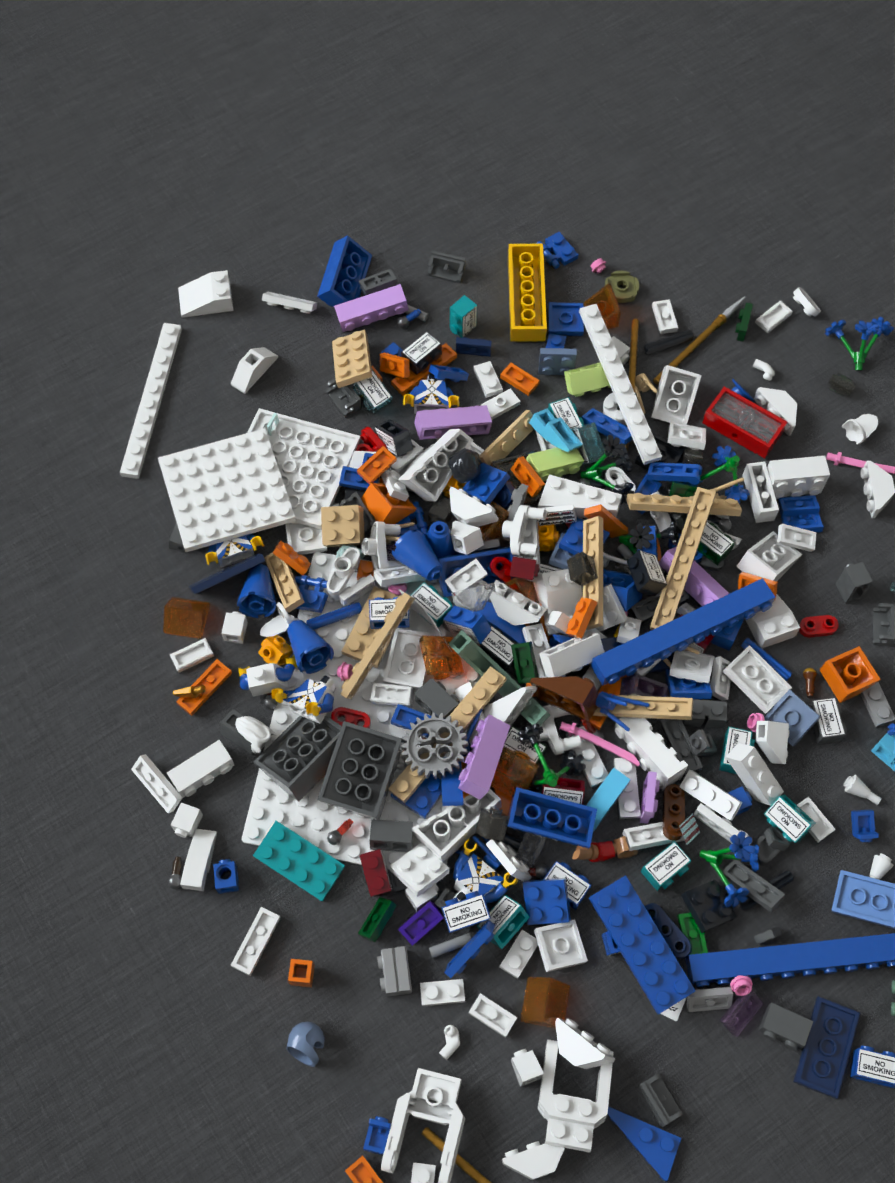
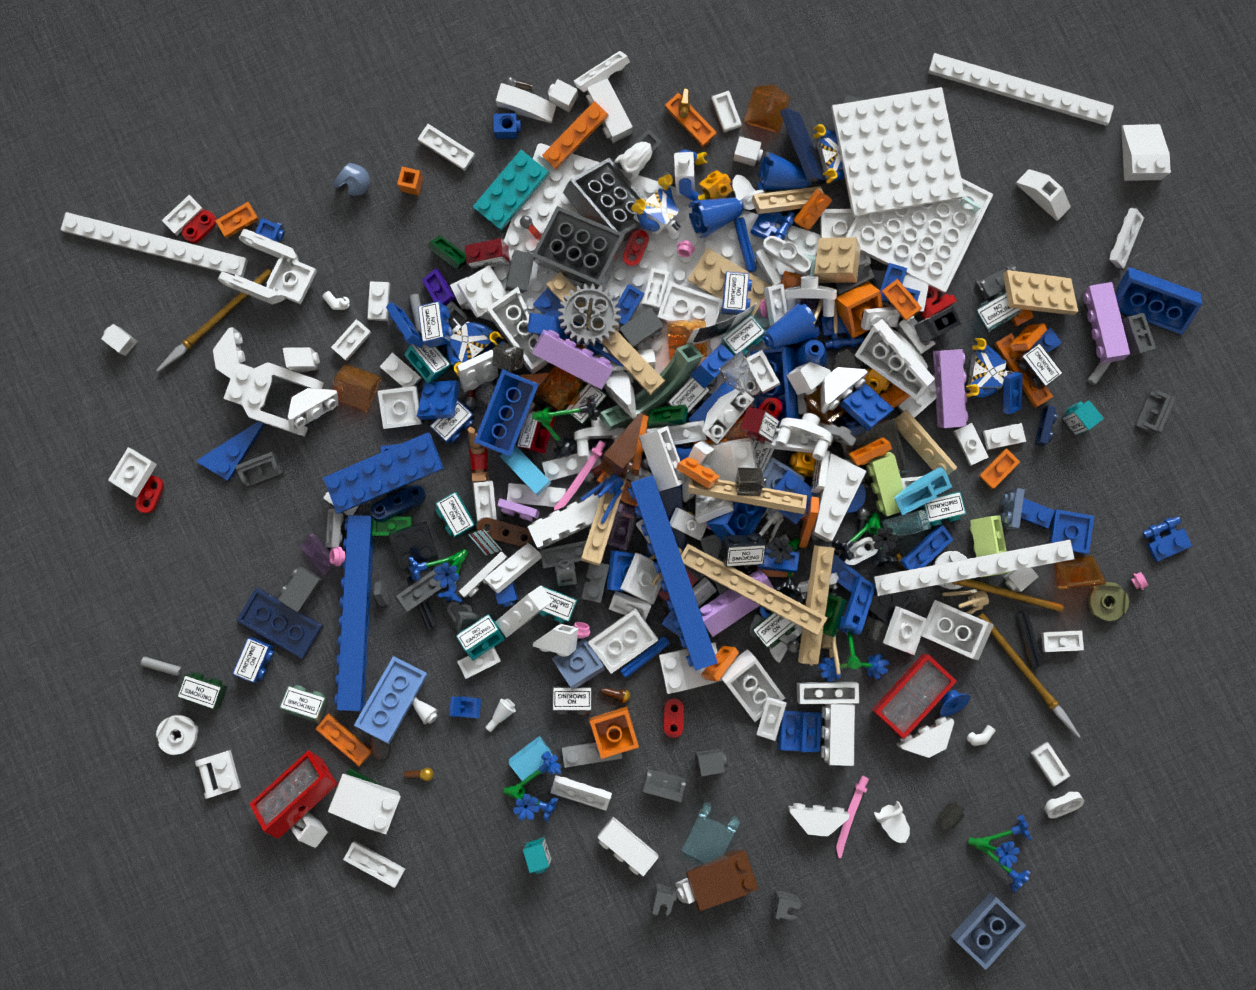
camera: 100 degrees right, 20 degrees up
(233, 797) = (575, 135): none -> orange plate
(381, 639) = (706, 280): tan plate -> none
(395, 970) = (400, 262): light grey brick -> none
(403, 322) = (1088, 357): piece -> none
(465, 465) = (886, 386): black hair -> none
(527, 292) = (1109, 493): yellow brick -> none
(744, 315) = (1052, 729): dark green plate -> none

